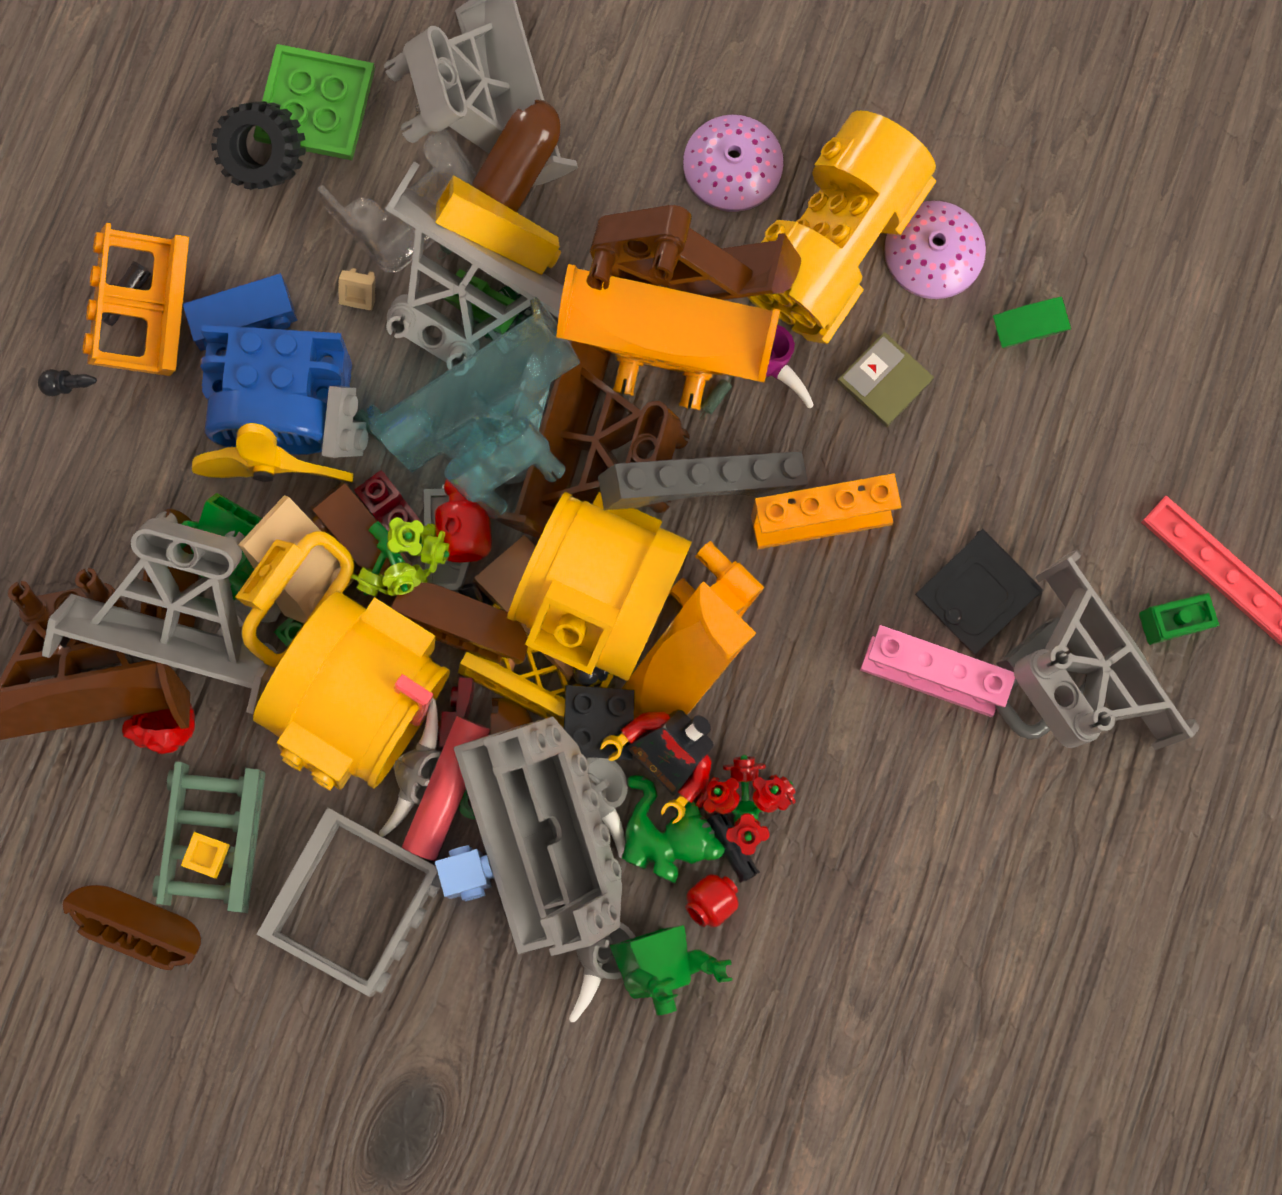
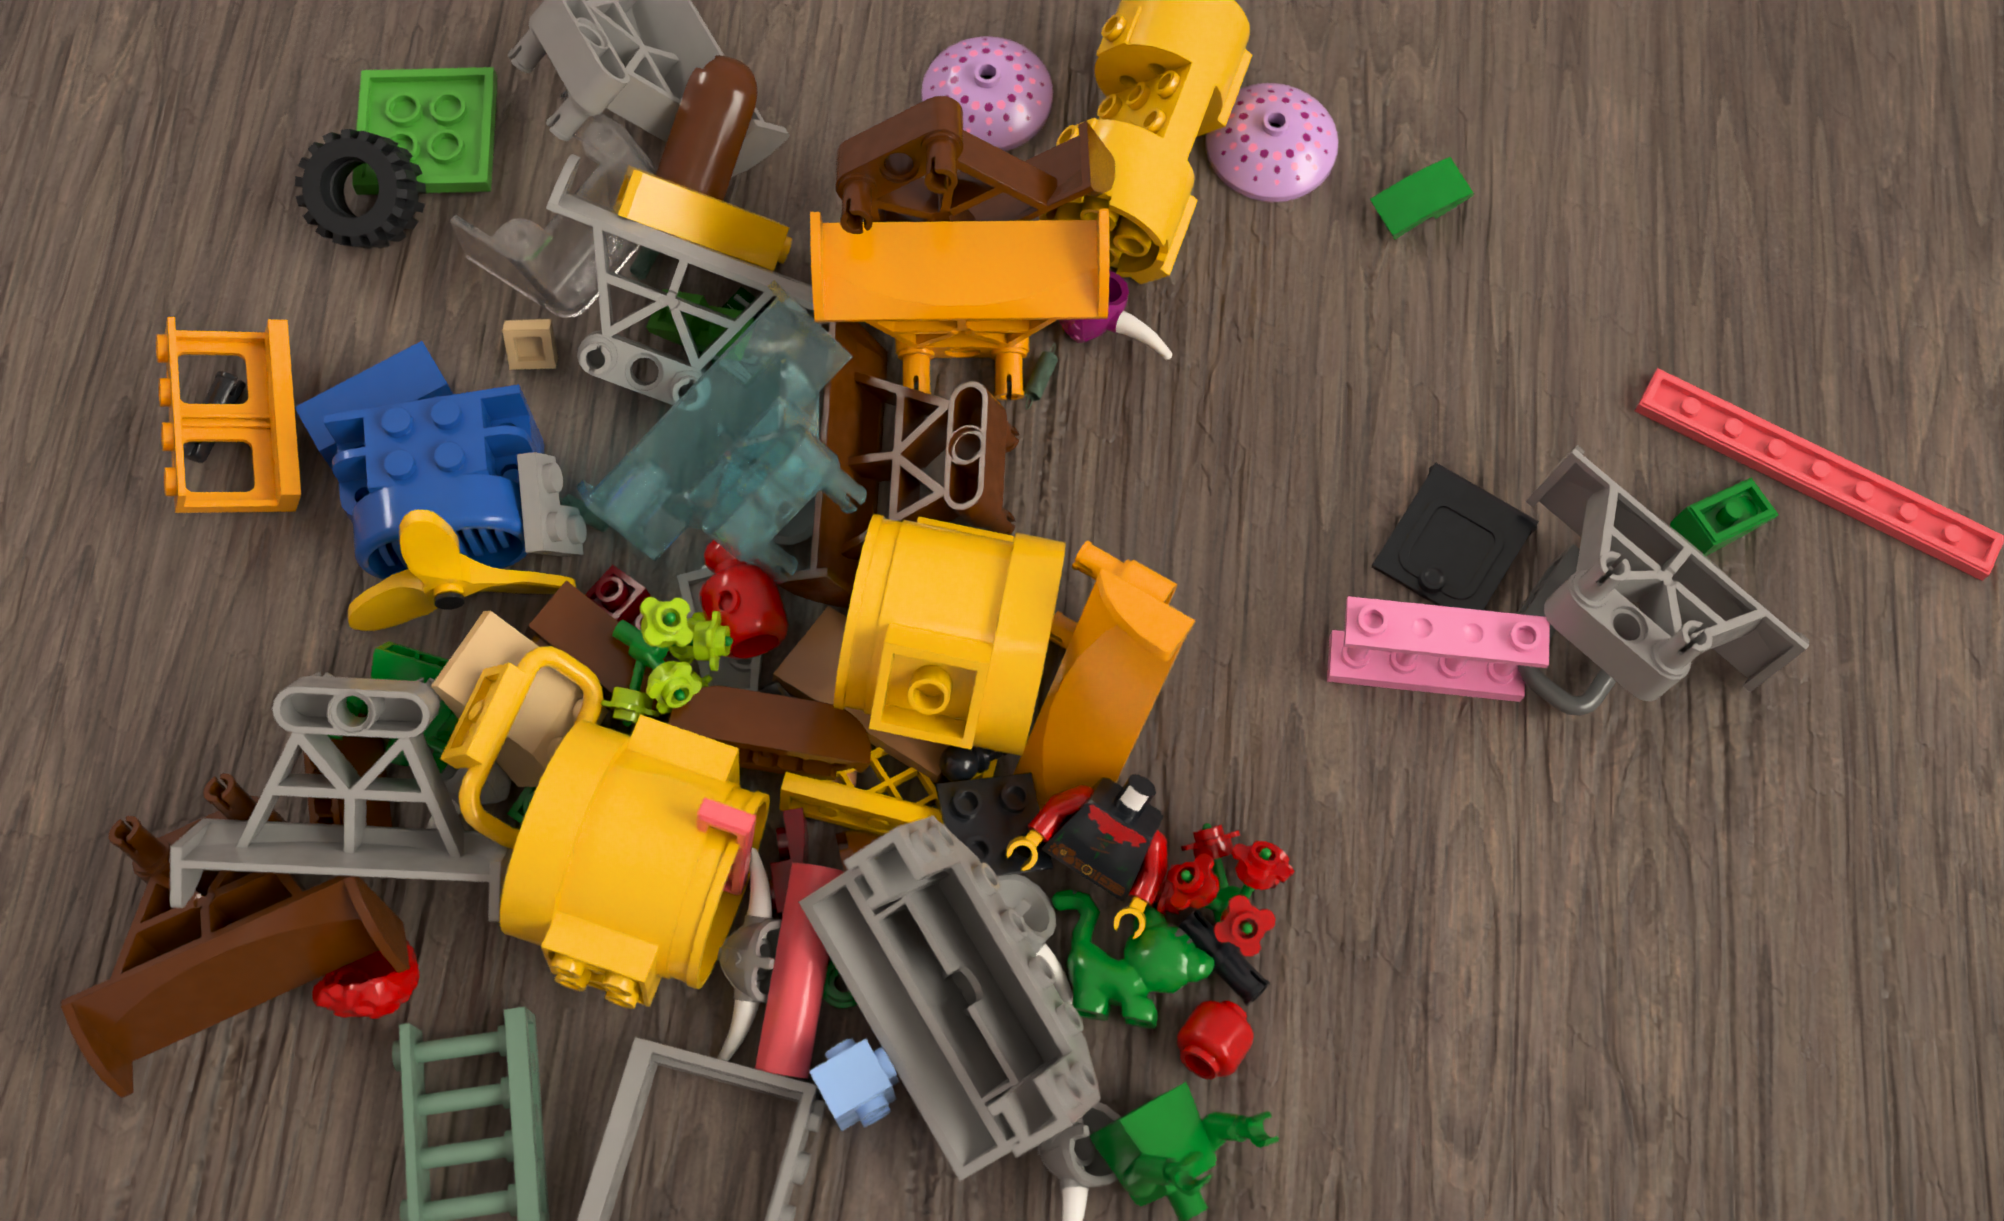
camera: 15 degrees left, 10 degrees down
(56, 382) = (135, 553): black bar -> none
(205, 855) = (469, 1149): yellow plate -> none
(661, 481) = (984, 480): dark grey arch -> none
(825, 511) = (1225, 478): light orange window -> none
(885, 379) = (1255, 307): olive tile -> none

